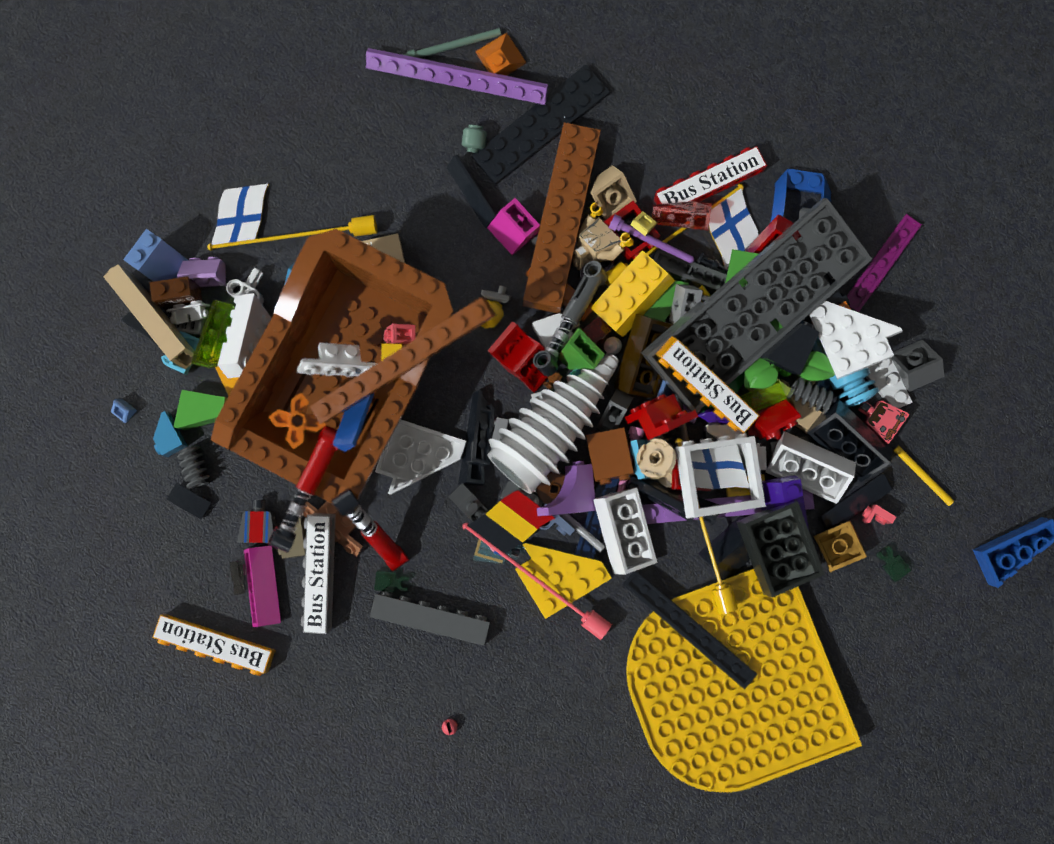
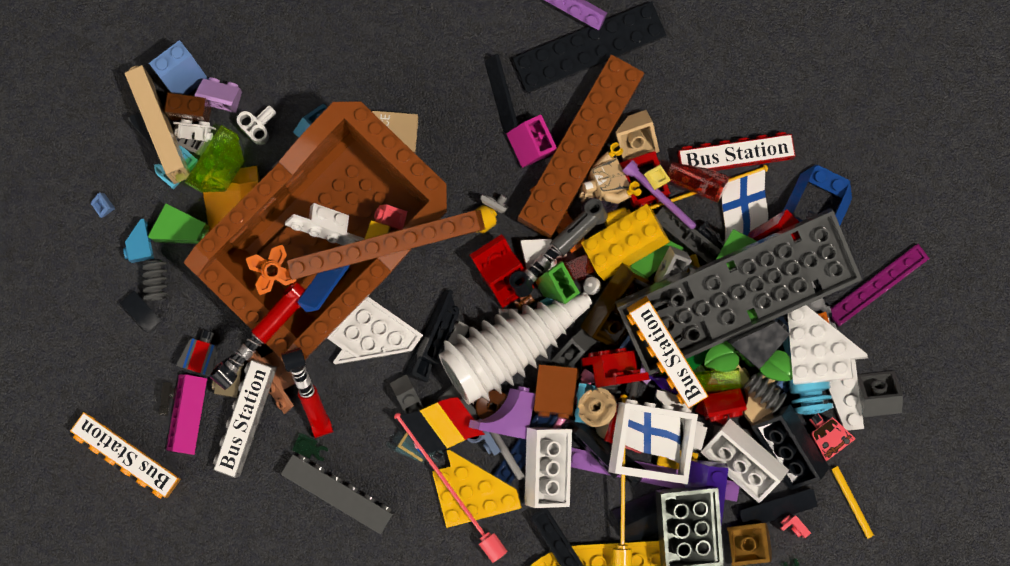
camera: 10 degrees right, 0 degrees up
(242, 214) = (272, 49): flag -> none
(243, 335) = (241, 170): white wedge -> none
(474, 138) = (520, 42): sand green head -> none

